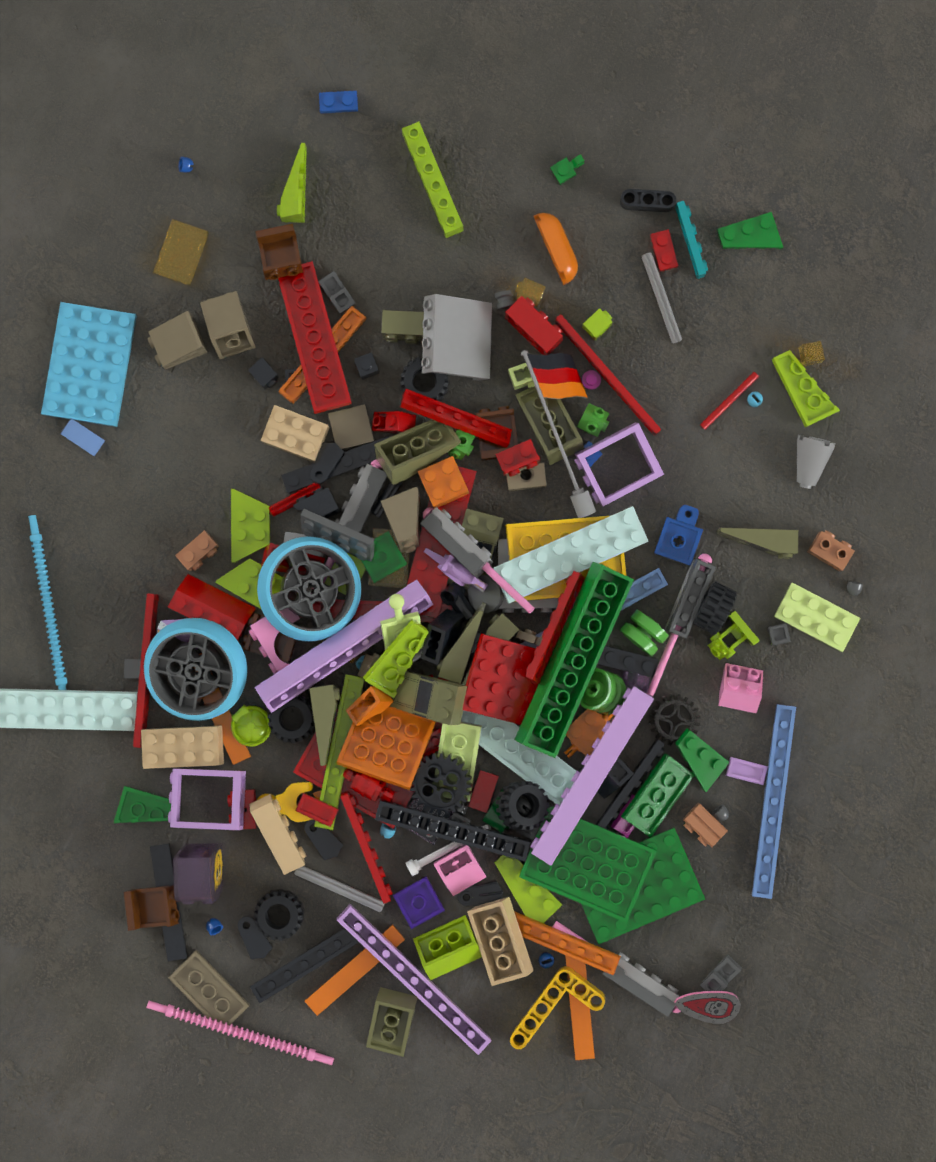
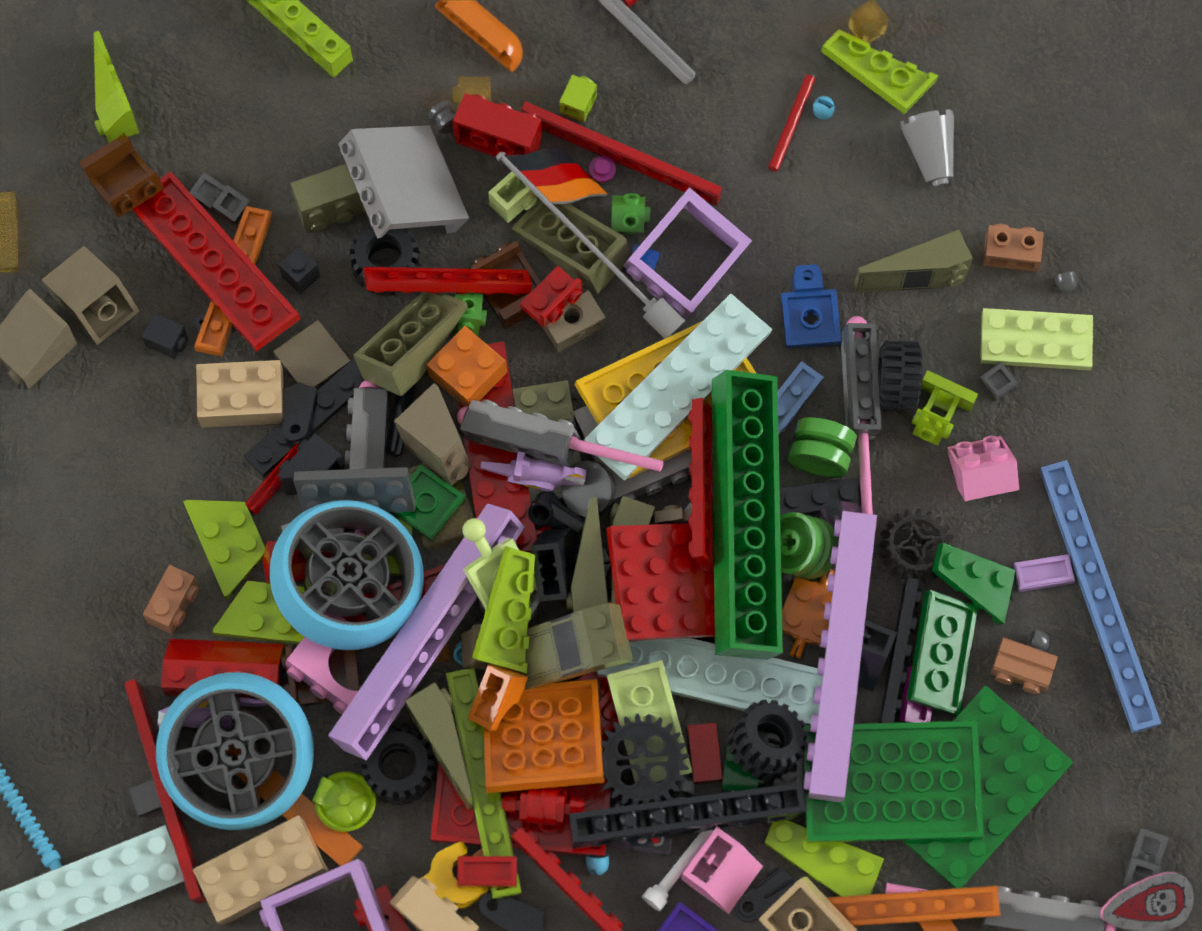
camera: 30 degrees left, 15 degrees down
(393, 422) = (363, 324): red slope -> none

